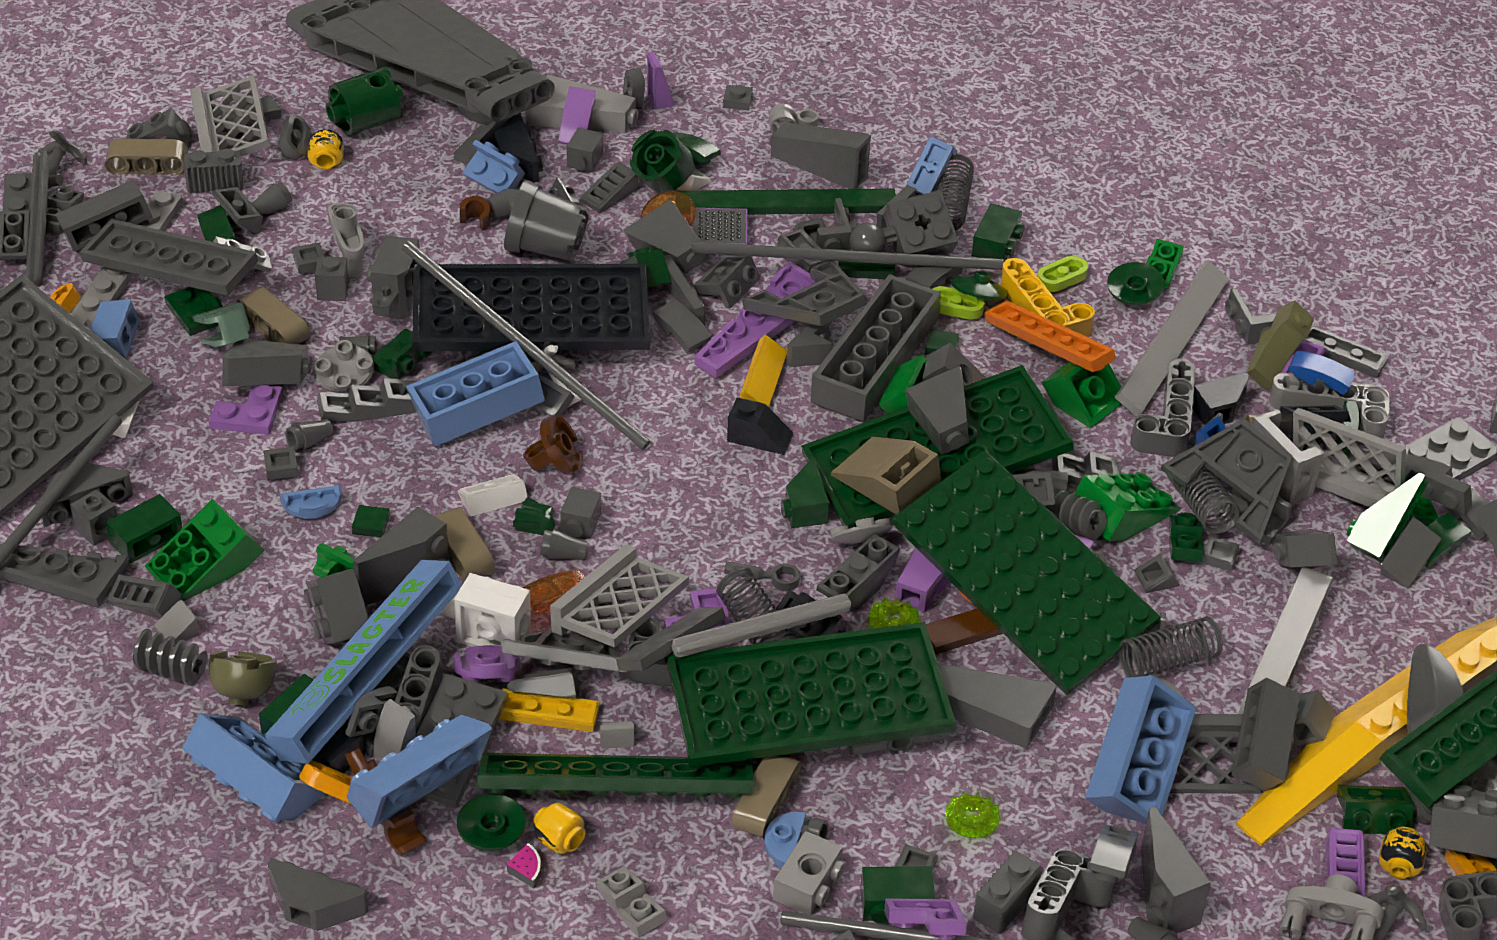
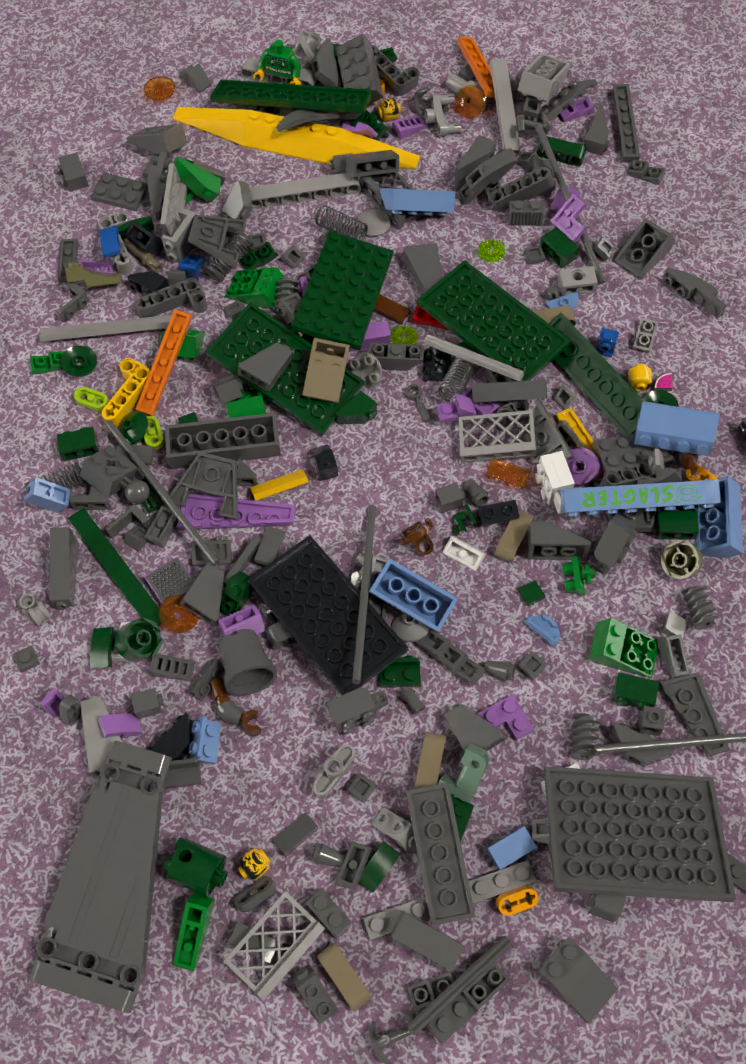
camera: 120 degrees left, 20 degrees up
(148, 451) = (584, 736): none -> dark grey piece
(309, 85) = (193, 931): none -> green slope
(320, 192) = (295, 834): none -> dark grey slope
(331, 278) = (374, 754): dark grey brick -> none
(343, 367) = (436, 692): light grey dish -> none
(507, 539) = (498, 512): none -> black bracket
(598, 241) = (243, 619): none -> medium lavender brick
(655, 824) = (607, 342): none -> blue brick
(701, 584) = (453, 410): none -> medium lavender slope
(1364, 770) = (362, 129): none -> medium lavender slope

